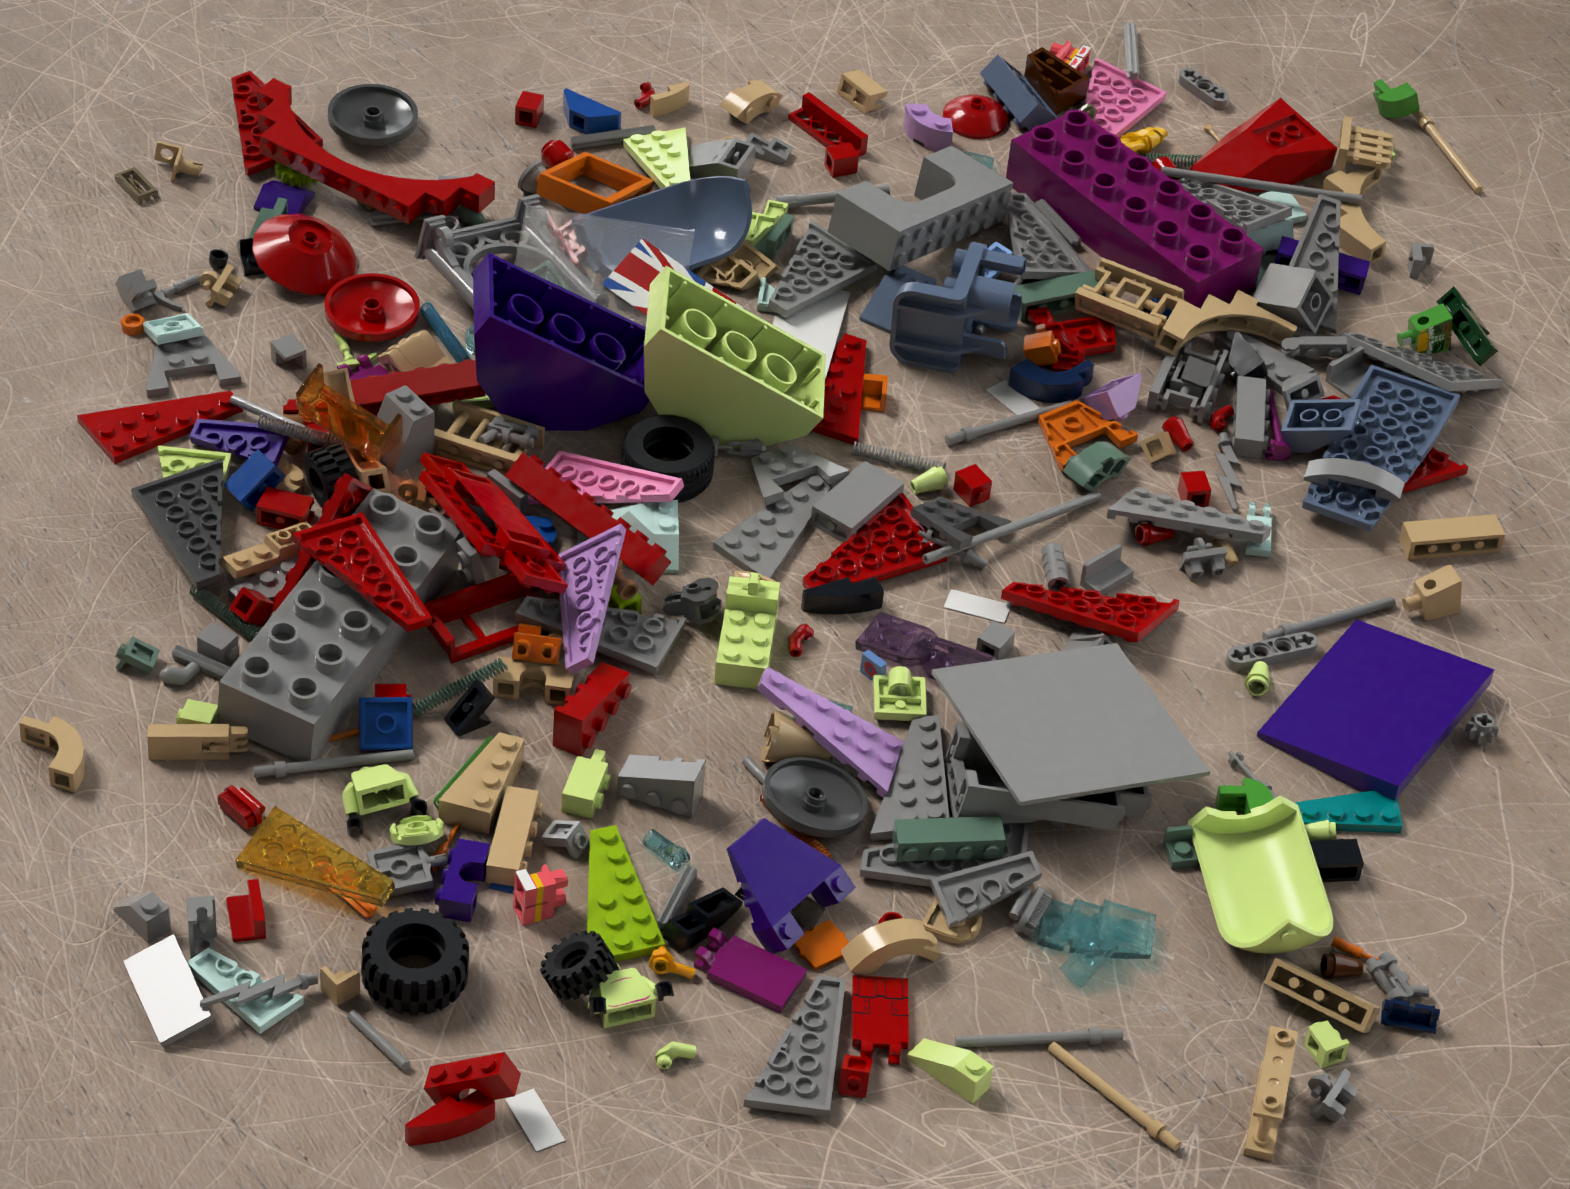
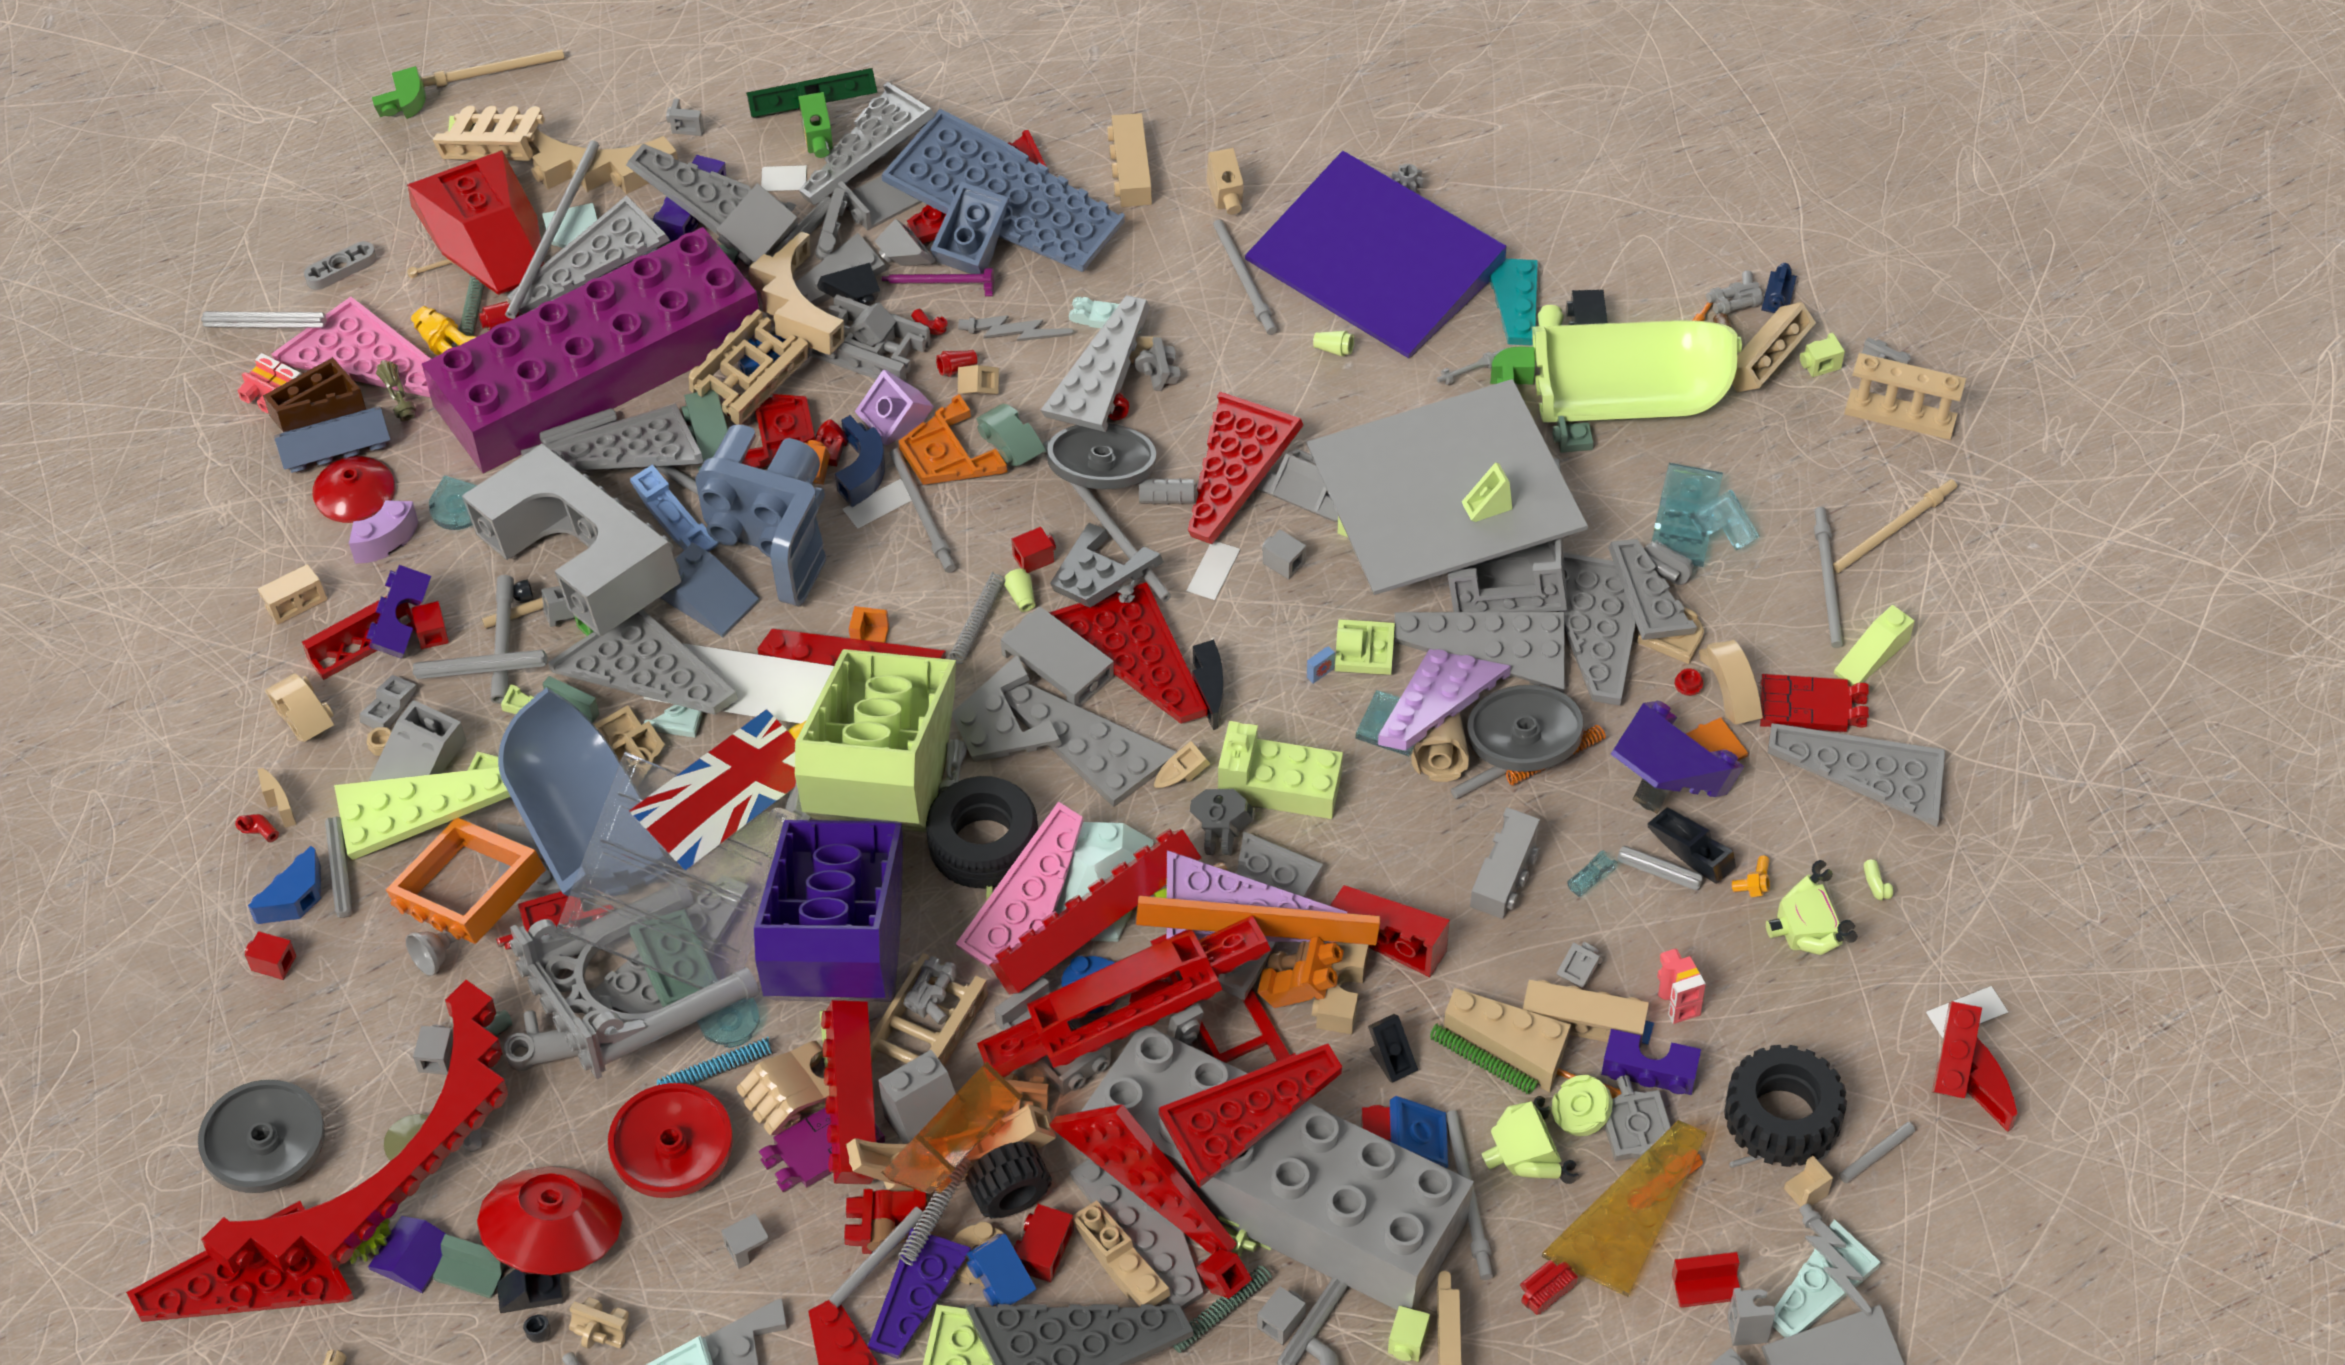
camera: 80 degrees left, 10 degrees up
(345, 350) = (732, 1180): yellowish green piece -> none
(457, 686) = (1368, 1087): sand green piece -> none
(555, 153) = (377, 926): red head -> none
(570, 598) = (1271, 920): none -> orange tile
(577, 965) = (1777, 928): black tyre -> none
(586, 785) = (1502, 940): yellowish green hinge -> none
(616, 899) = (1685, 920): lime wing -> none
(749, 970) = (1758, 807): magenta tile -> none
(801, 632) = (1268, 732): red arm -> none
(803, 184) = (480, 664): none -> light grey axle
(826, 132) = (404, 587): none -> dark purple arch
(855, 1076) = (1891, 725): red bracket -> none
(914, 645) = (1288, 625): clear purple plate -> none
(948, 838) = (1589, 614): sand green brick -> none
(1046, 738) = (1489, 496): none -> yellowish green slope
(1077, 519) = (1101, 458): none -> dark grey dish
(1105, 571) = (1175, 450): light grey panel -> none
(1195, 488) = (1048, 357): red brick -> none
(1250, 417) = (934, 295): light grey brick -> none
(1299, 645) = (1288, 329): light grey beam -> none
(1355, 473) = (1058, 215): light grey slope -> none
(1373, 326) = (783, 178): none -> white sticker

